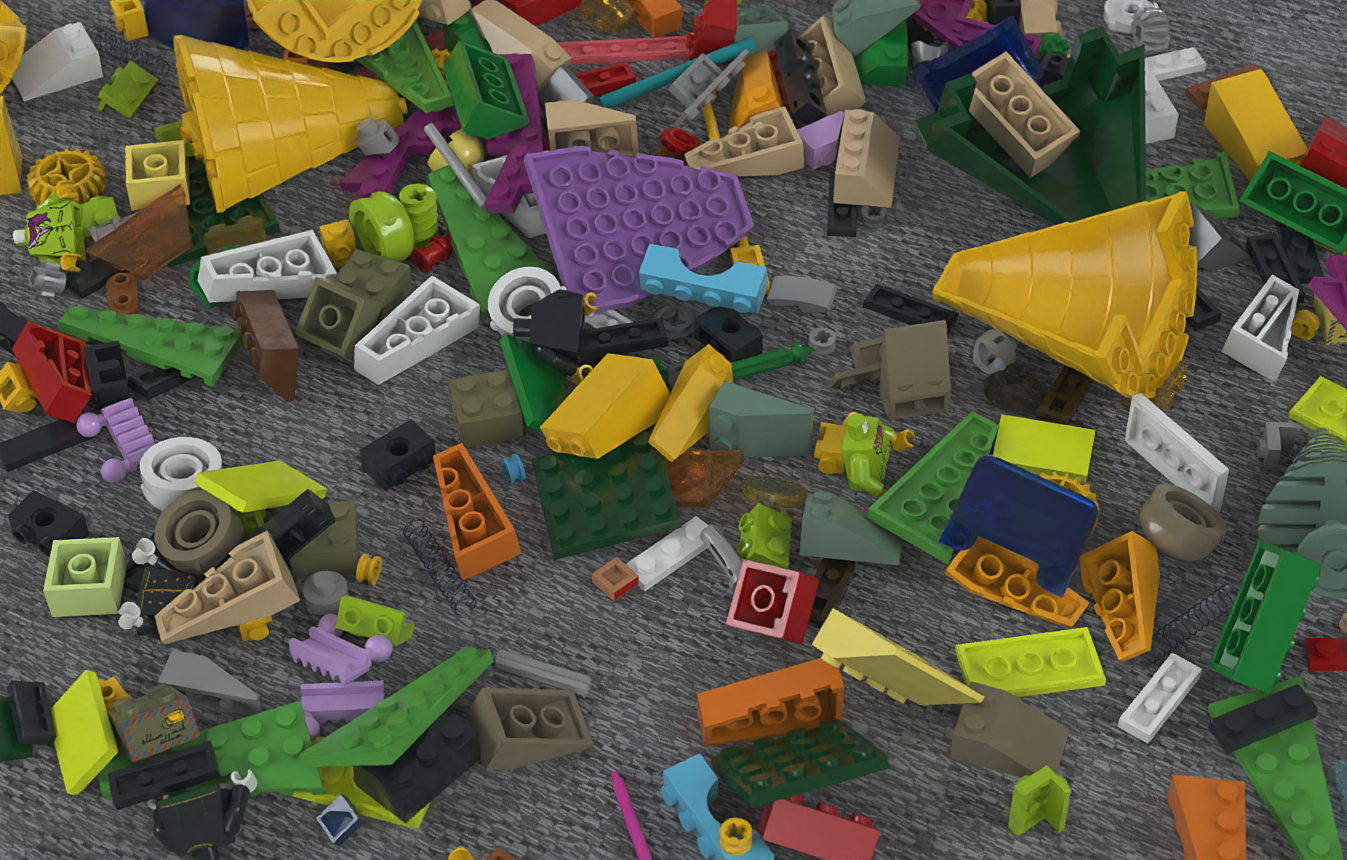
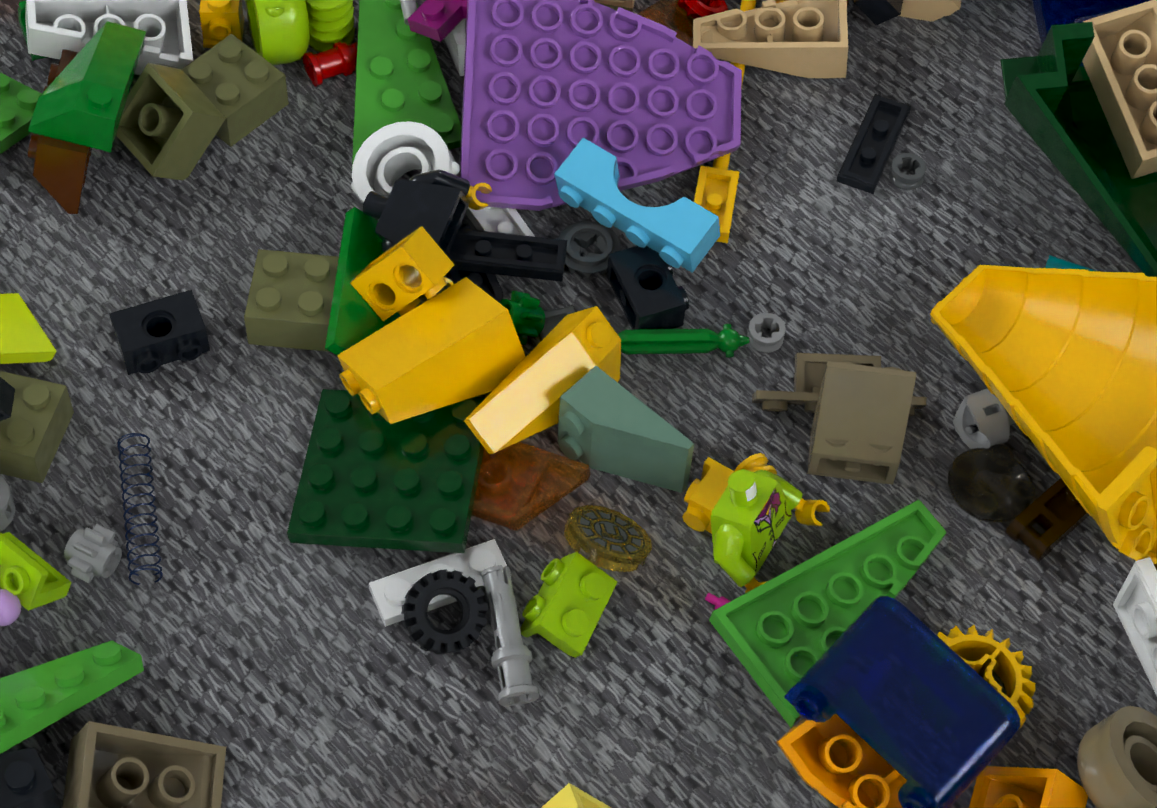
camera: 15 degrees right, 10 degrees up
(283, 307) = (92, 90): none -> green wedge
(368, 569) = (50, 483): yellow bush -> none
(415, 330) = (256, 165): white wedge -> none
(422, 600) = (92, 553): none -> light grey gear
(473, 515) = (207, 454): orange wedge -> none
(513, 469) = (292, 396): dark azure bush -> none
(543, 672) = (201, 707): light grey axle -> none
(557, 361) = (403, 274): none -> yellow brick
(615, 579) = (350, 599): nougat plate -> none
(697, 552) = (471, 603): none -> black tyre
(772, 601) = (529, 711): red slope -> none
(807, 293) = (768, 256): light grey slope -> none
(822, 140) = (881, 47): lavender slope -> none
(834, 581) = (619, 705): dark brown plate -> none
(843, 532) = (666, 630): sand green slope -> none
(866, 161) = (925, 93): tan slope -> none
(906, 307) = (899, 322): black tile -> none
(1044, 446) = (996, 582): neon yellow tile -> none

